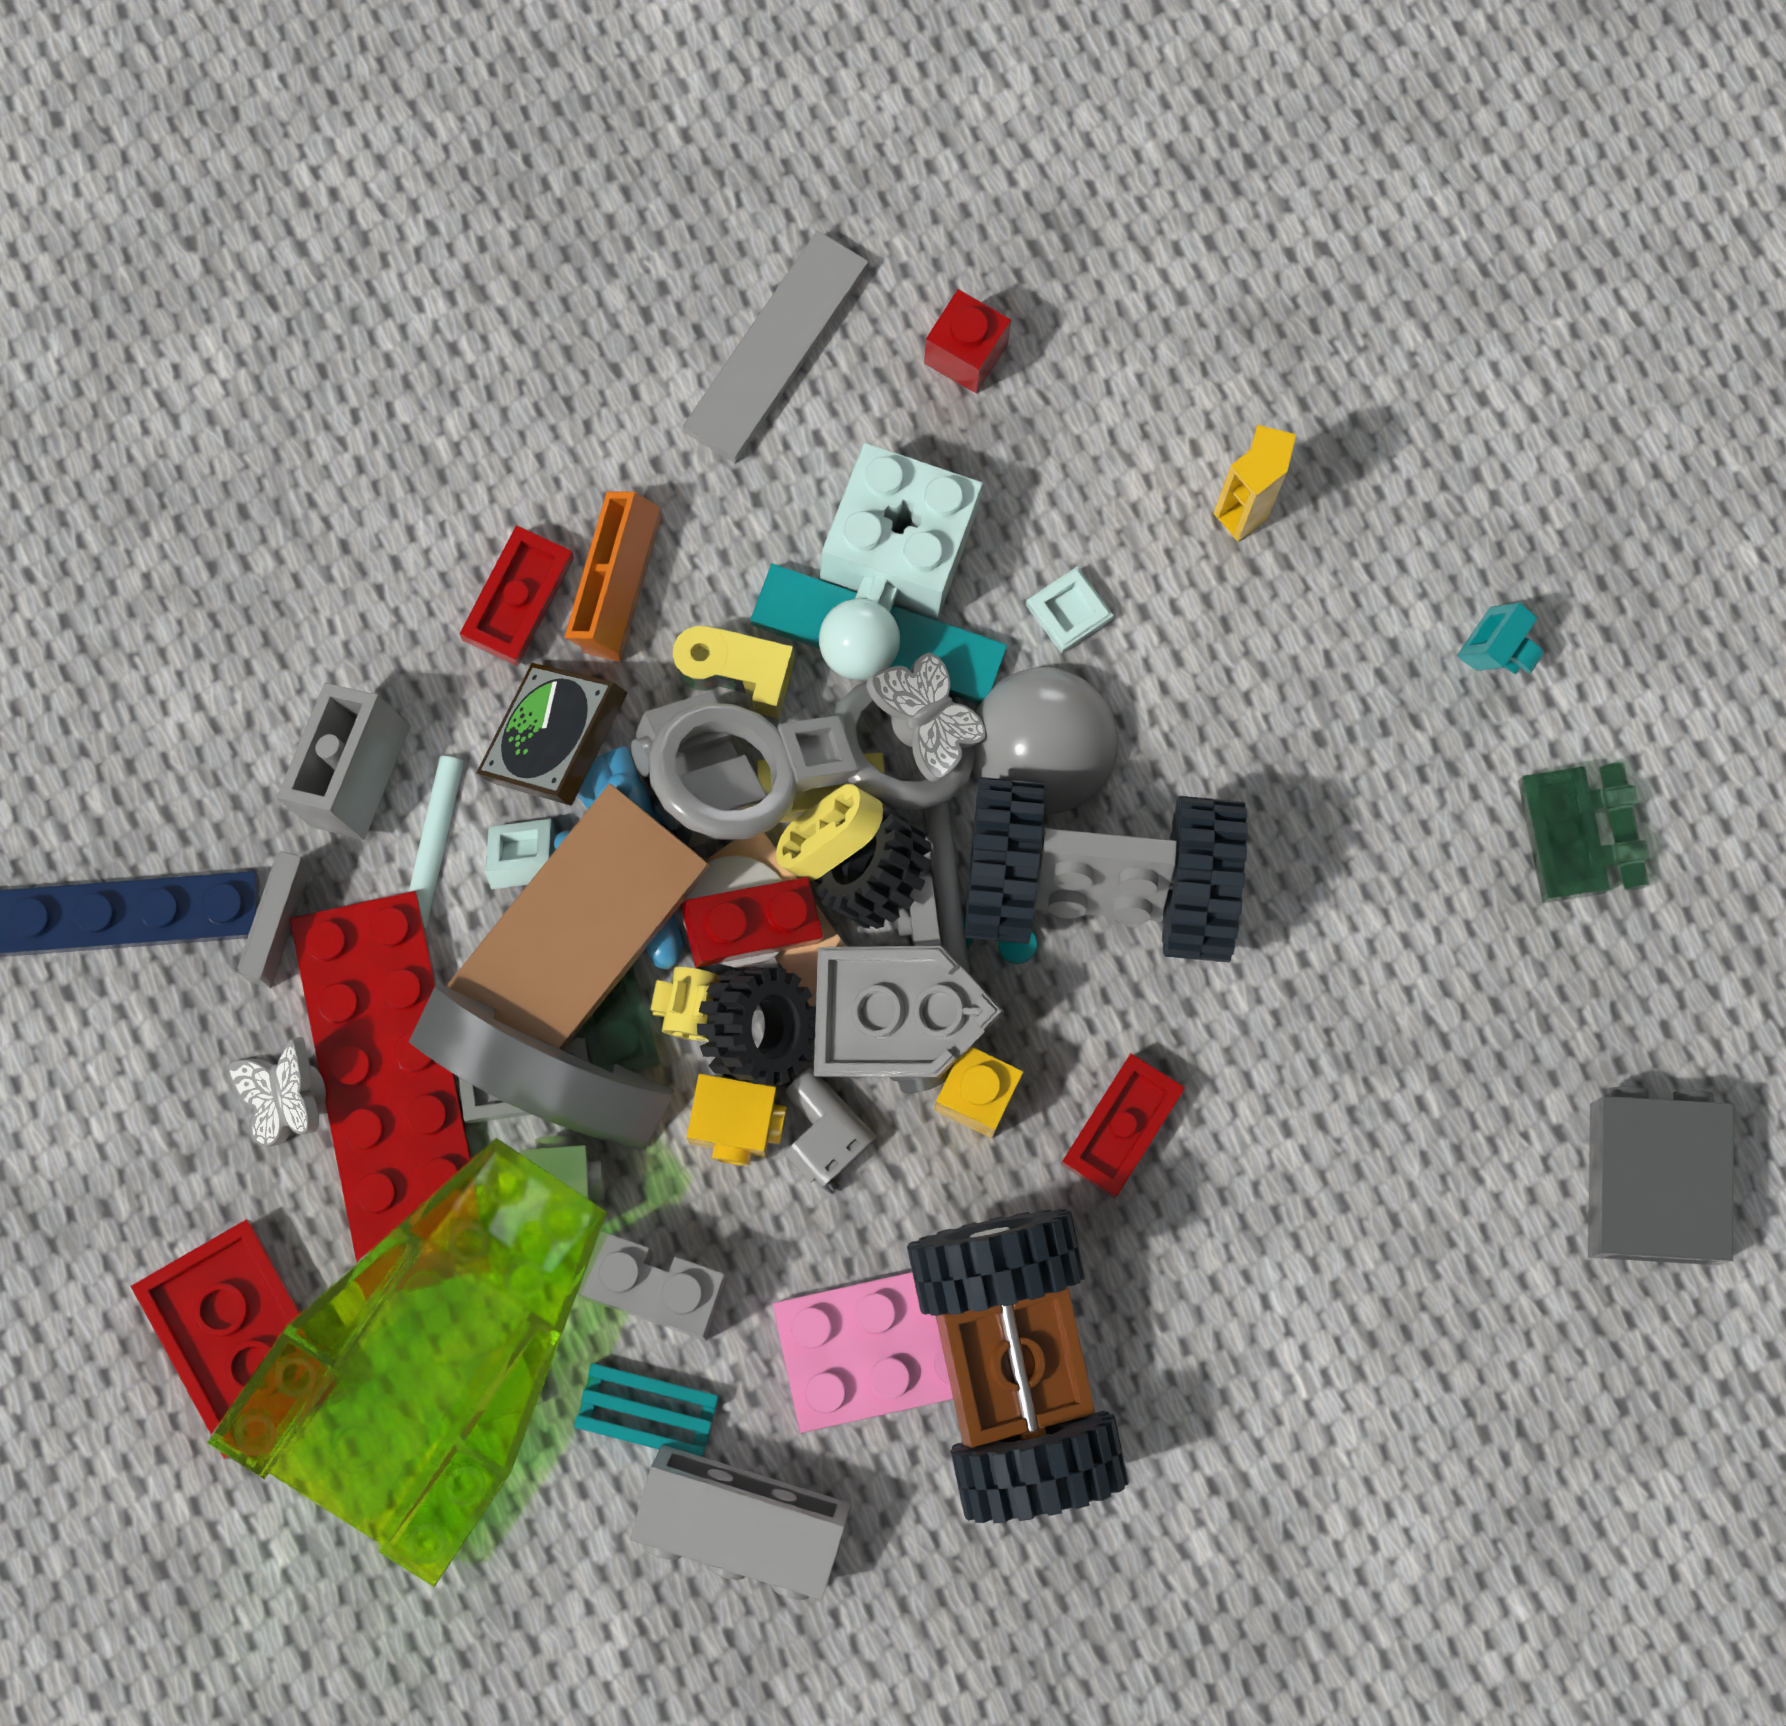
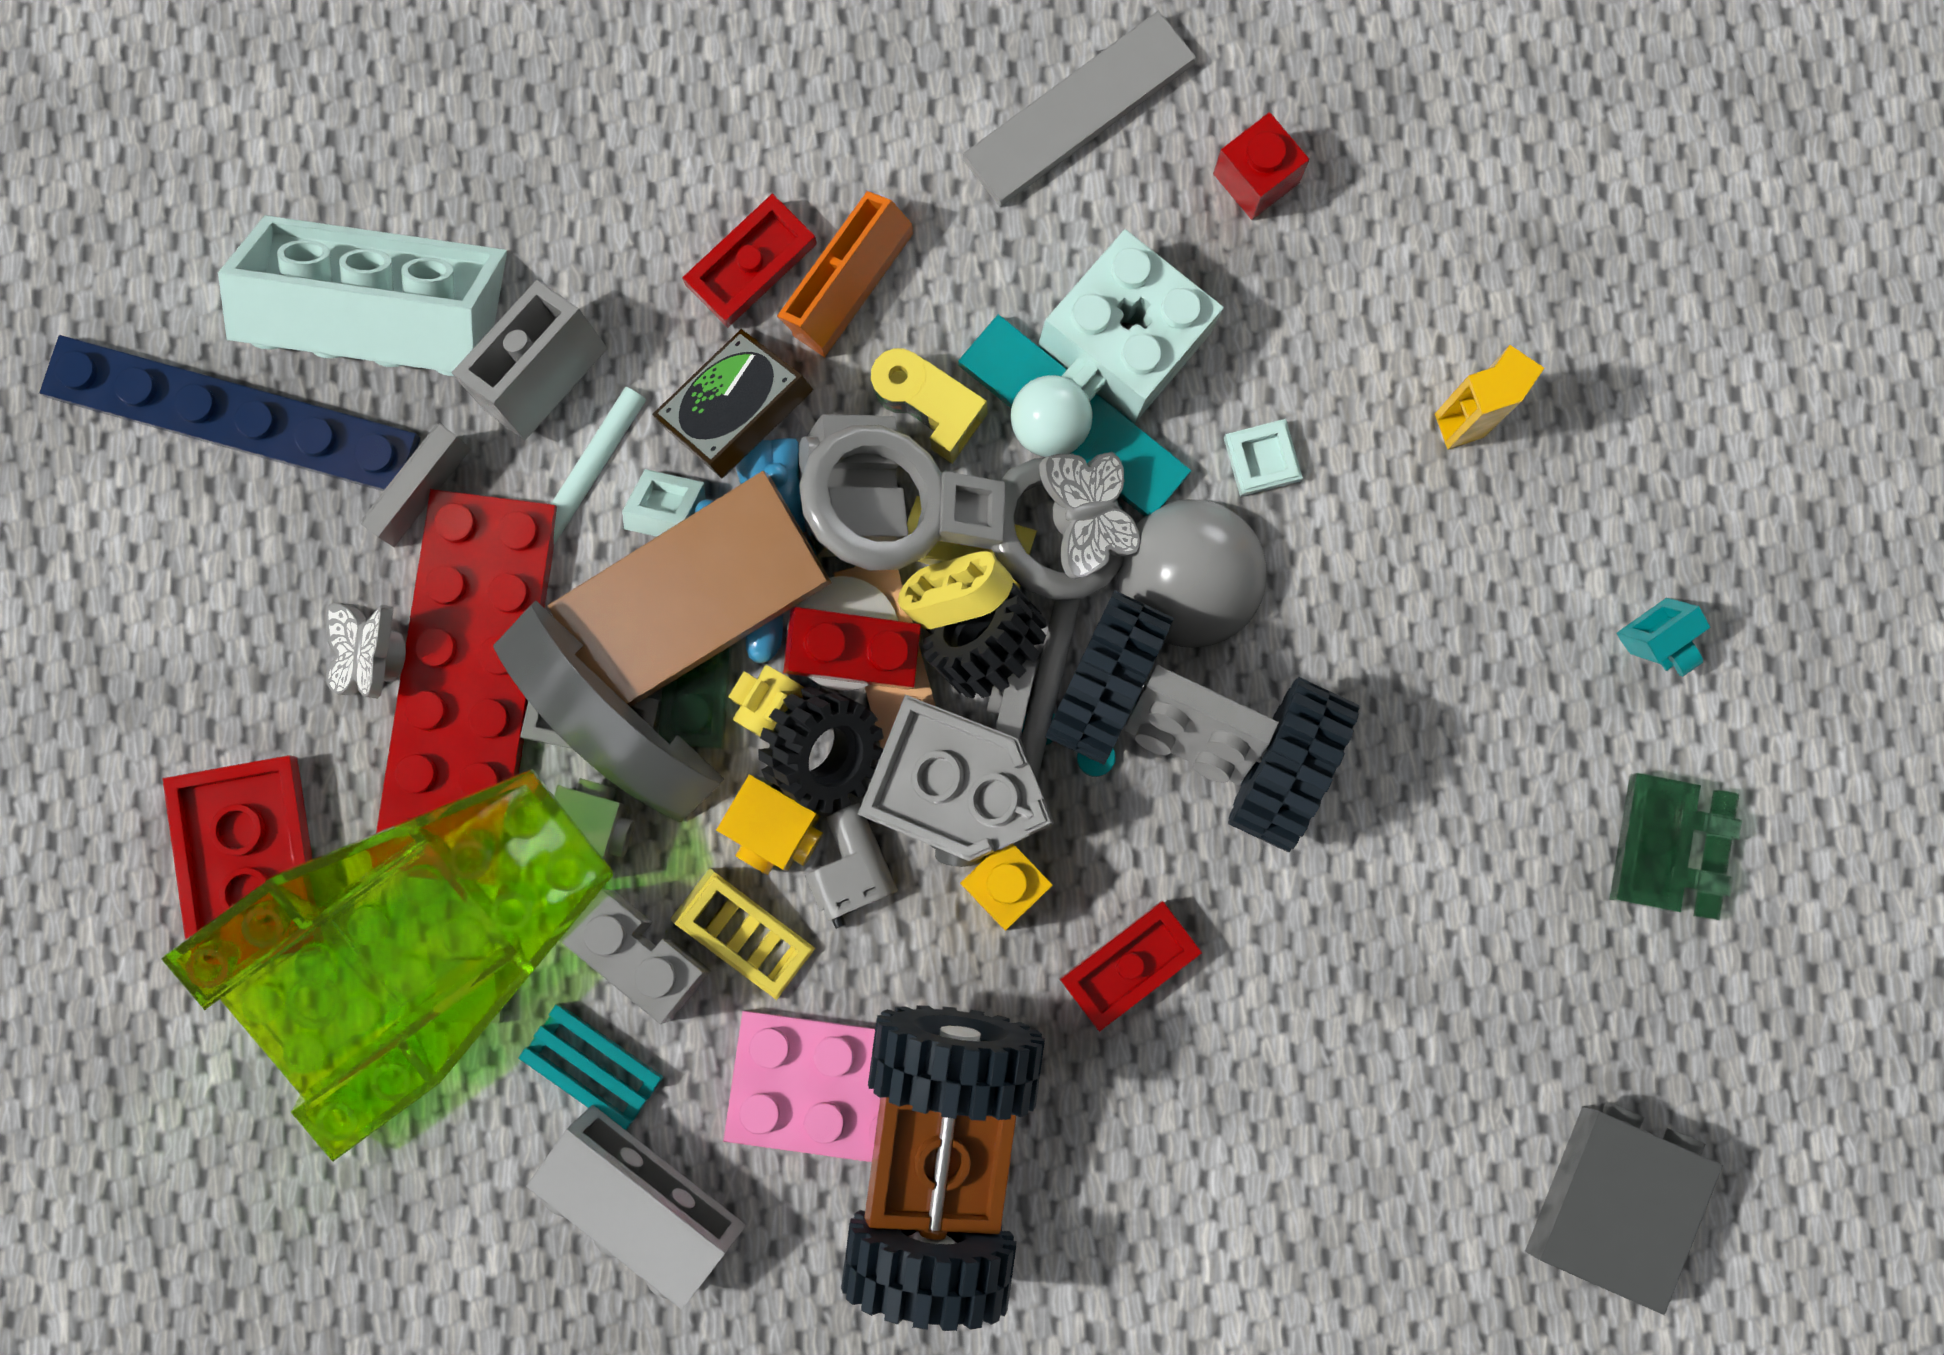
camera: 25 degrees right, 5 degrees up
(155, 757) = (360, 294): none -> light aqua slope
(712, 1245) = (698, 900): none -> light yellow slope

